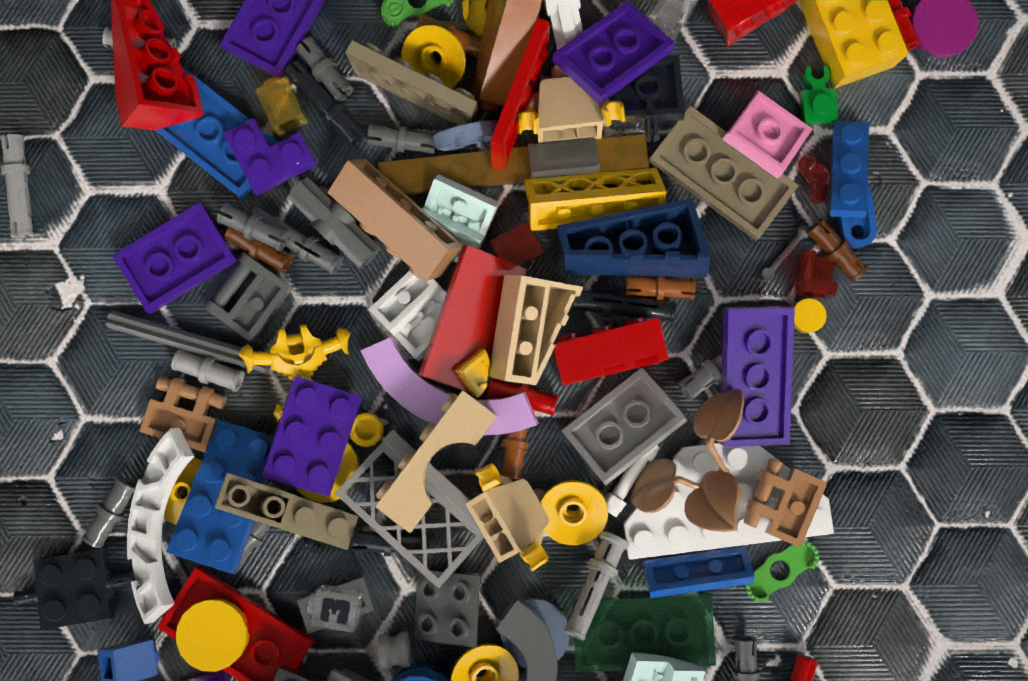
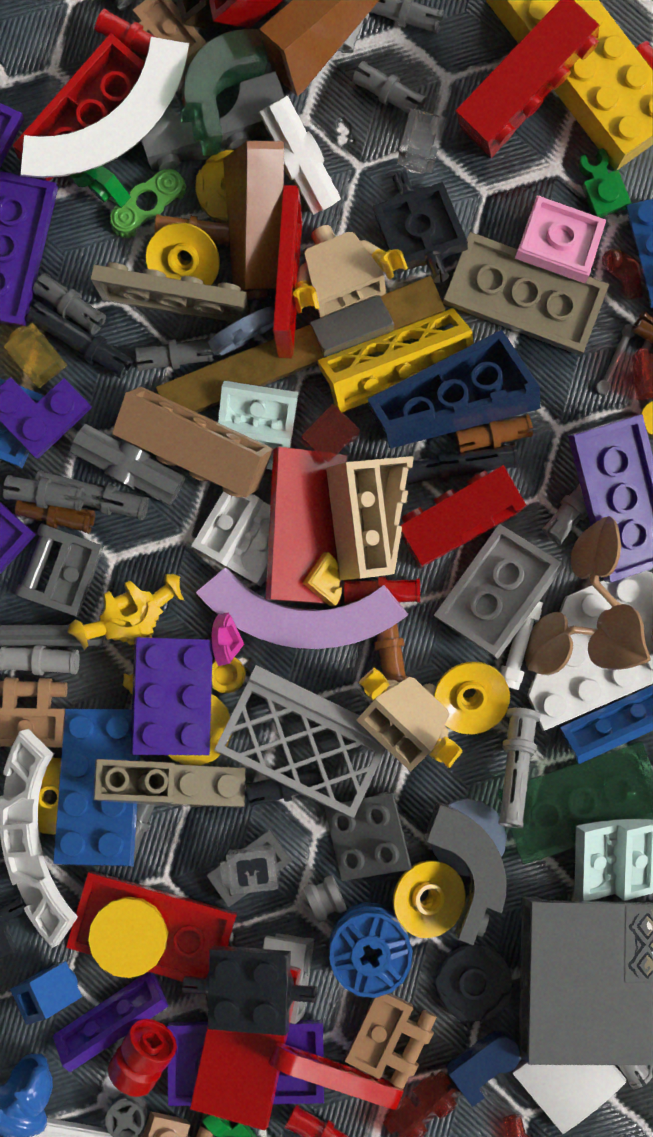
camera: 15 degrees left, 0 degrees up
(373, 399) = (225, 639): none -> dark pink tile
(407, 497) = (329, 635): tan arch -> none
(613, 52) = (373, 198): dark purple plate -> none

